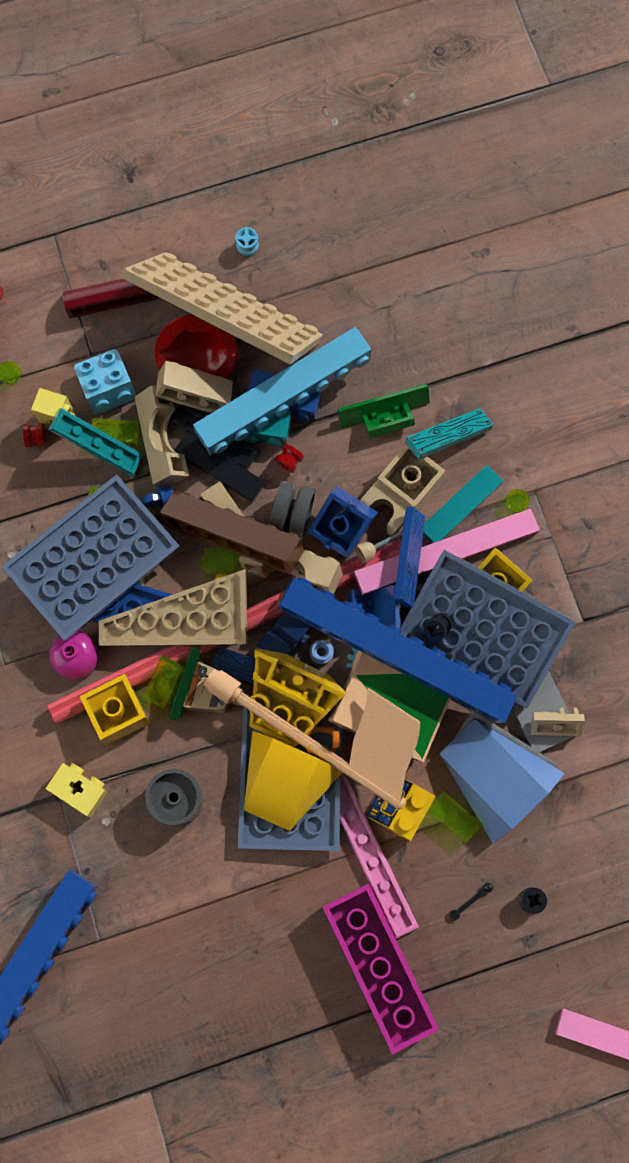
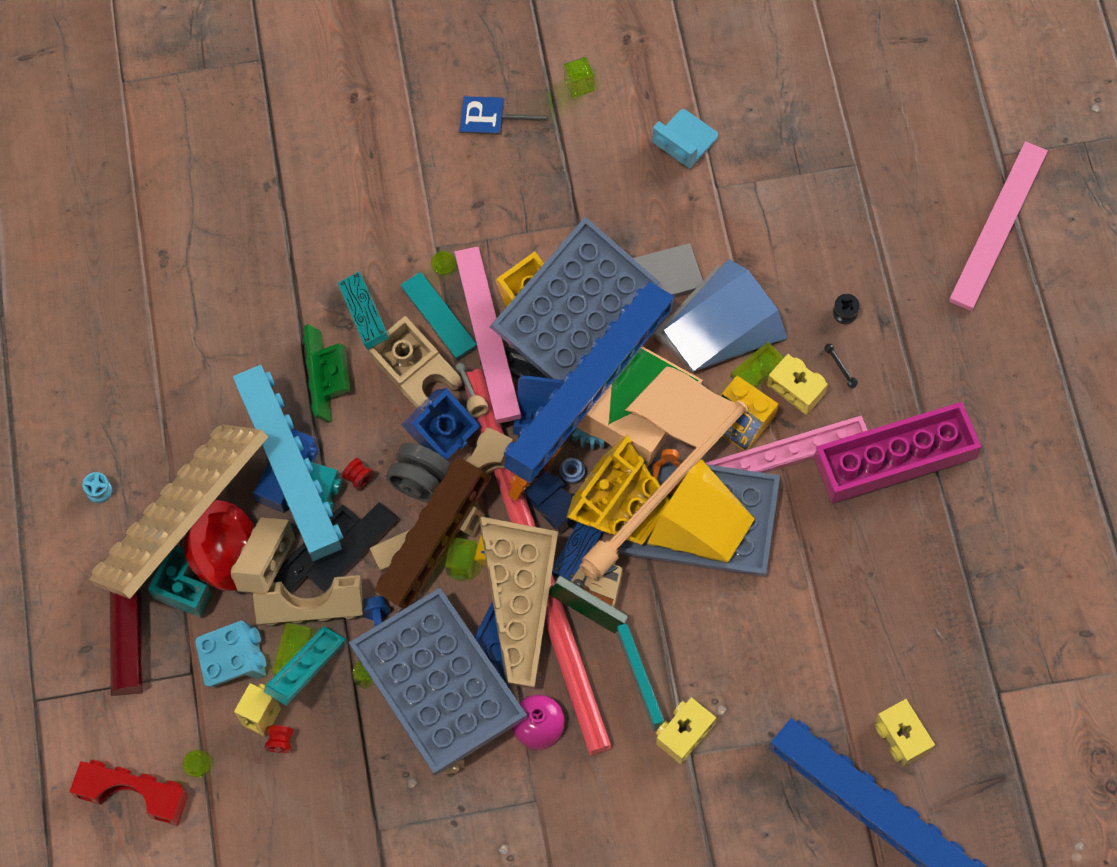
camera: 80 degrees left, 10 degrees down
(86, 1012) = (903, 718): none -> light yellow brick
(114, 710) = (606, 679): yellow slope -> none
(123, 741) = (640, 676): none -> teal tile
(155, 318) = (175, 585): none -> teal brick
(164, 682) = (583, 625): clear neon green plate -> none
(178, 812) = (705, 613): dark grey wheel -> none
(409, 557) = (490, 362): blue tile -> none
(429, 864) = (809, 386): none -> light yellow brick
(436, 634) = (577, 344): black piece -> none
(557, 723) = (678, 257): tan plate -> none

